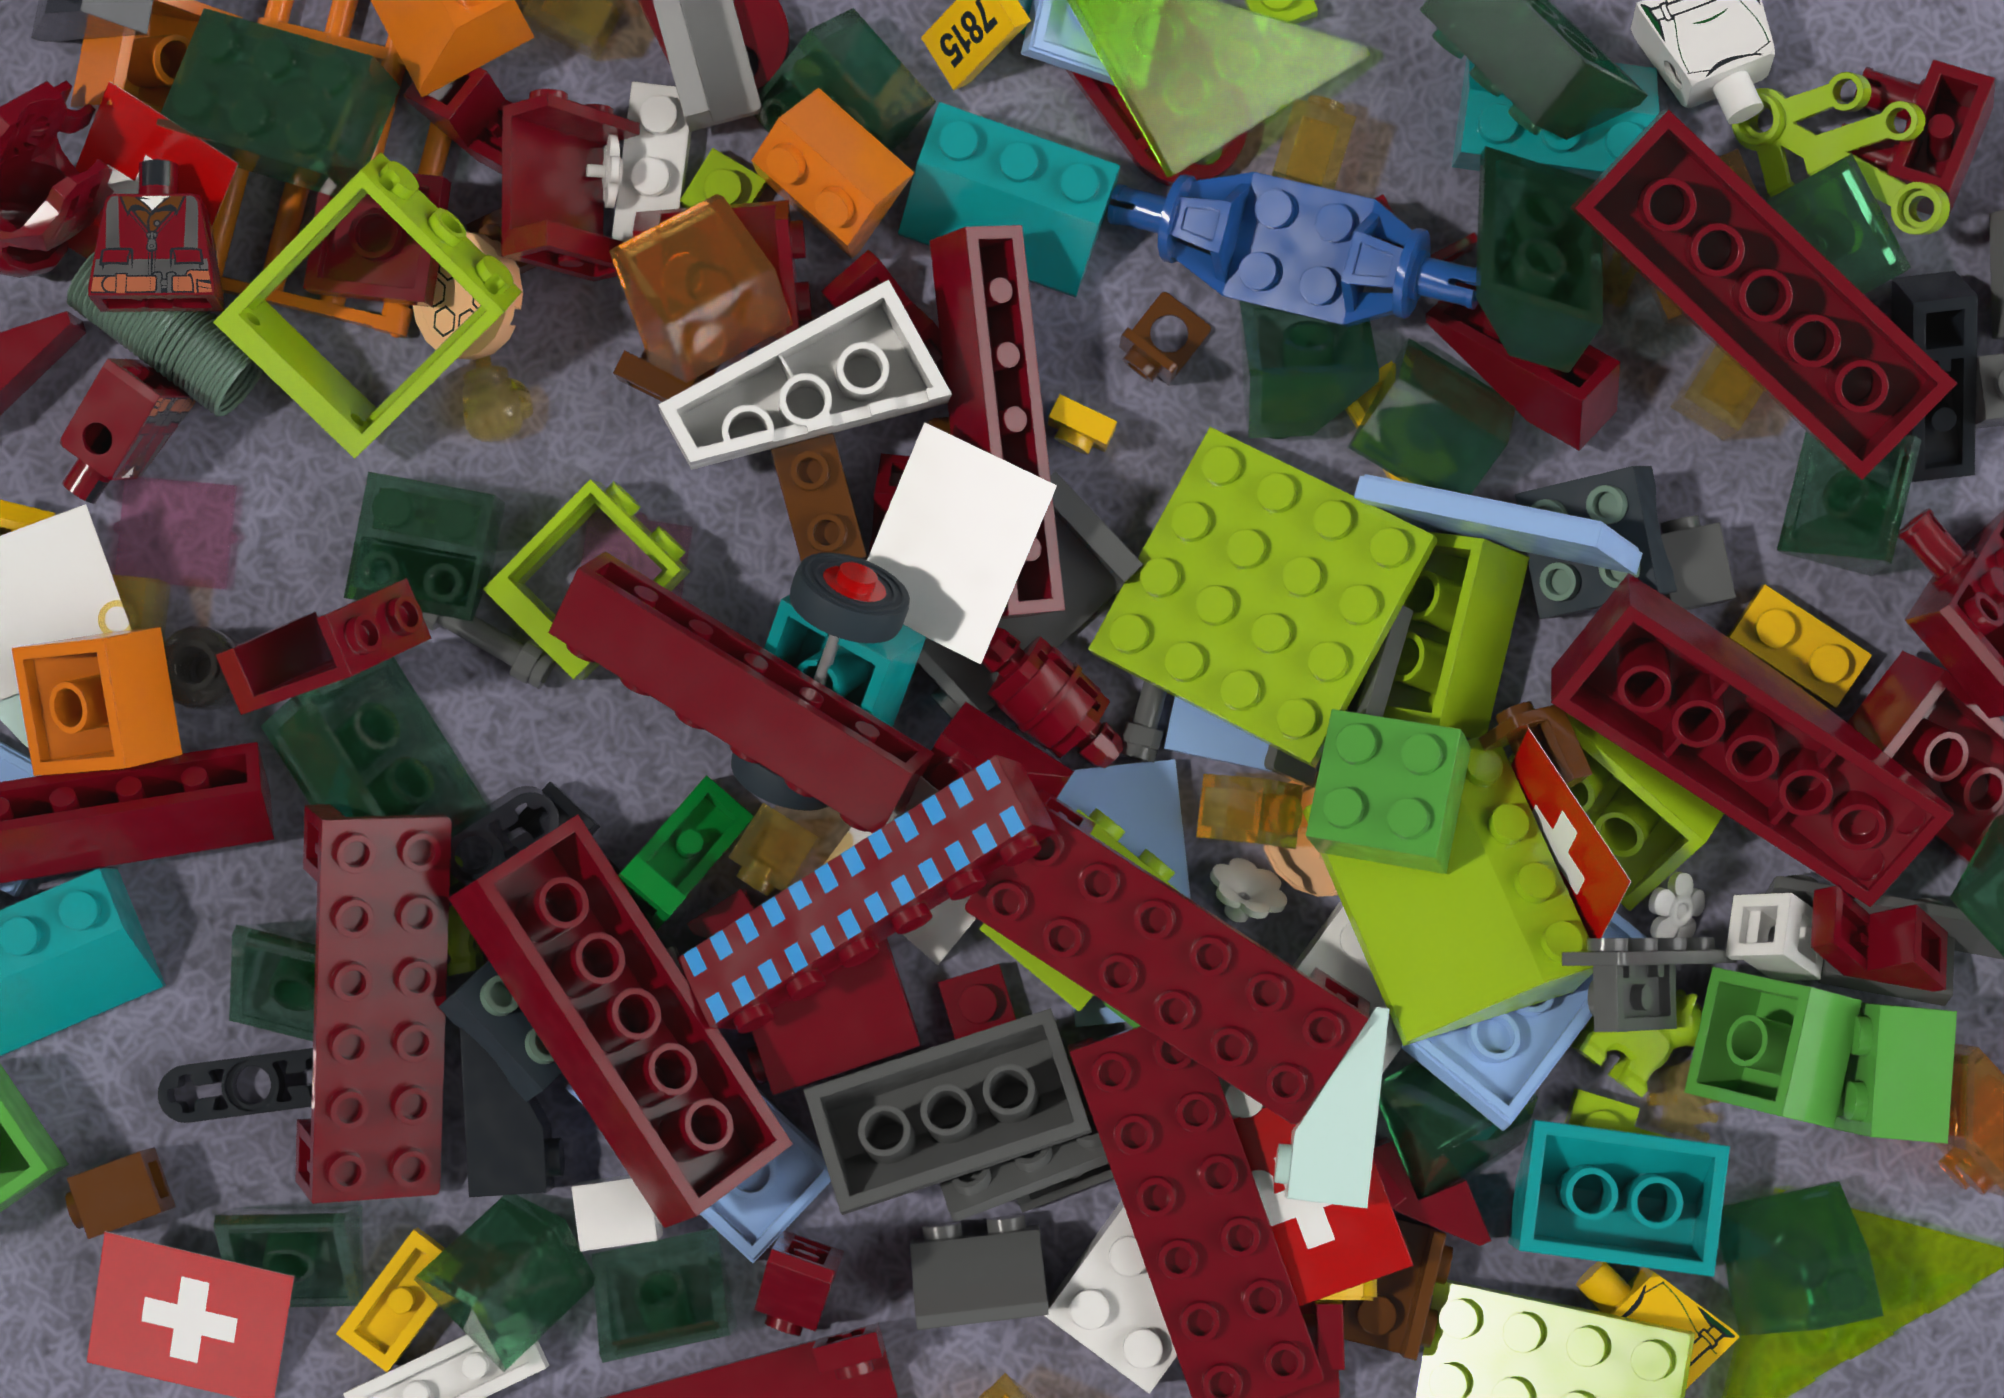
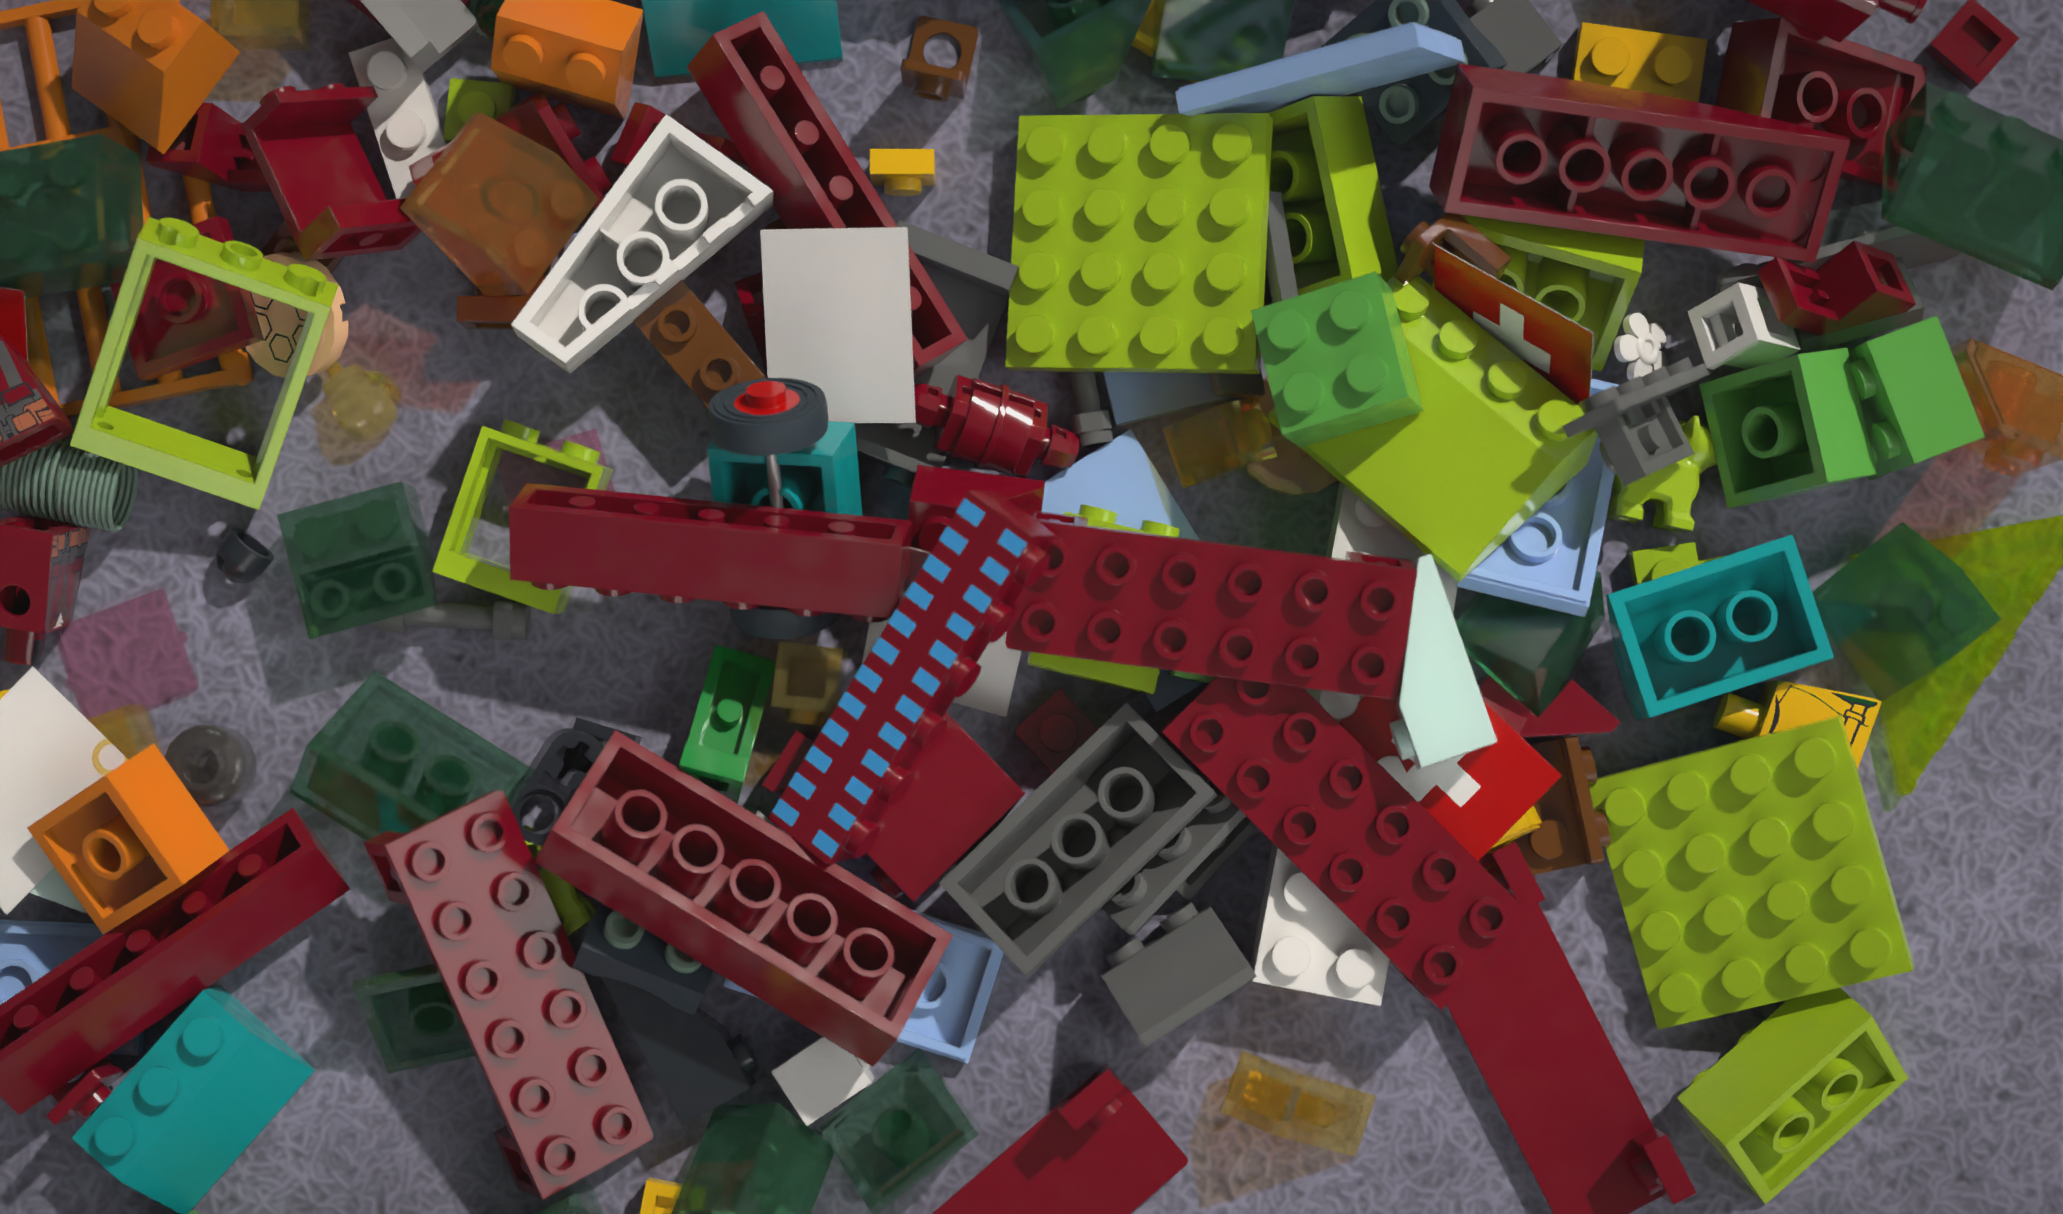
camera: 30 degrees left, 0 degrees up
(204, 1074) = (389, 1132): black beam -> none
(320, 492) = (242, 557): none -> black hinge
(323, 648) = (293, 710): dark red panel -> none
(610, 171) = (367, 142): white plant -> none
(797, 1283) = (1016, 1061): dark red slope -> none
(1247, 890) = (1251, 515): white plant -> none
(1680, 1108) = (1729, 524): clear yellow piece -> none

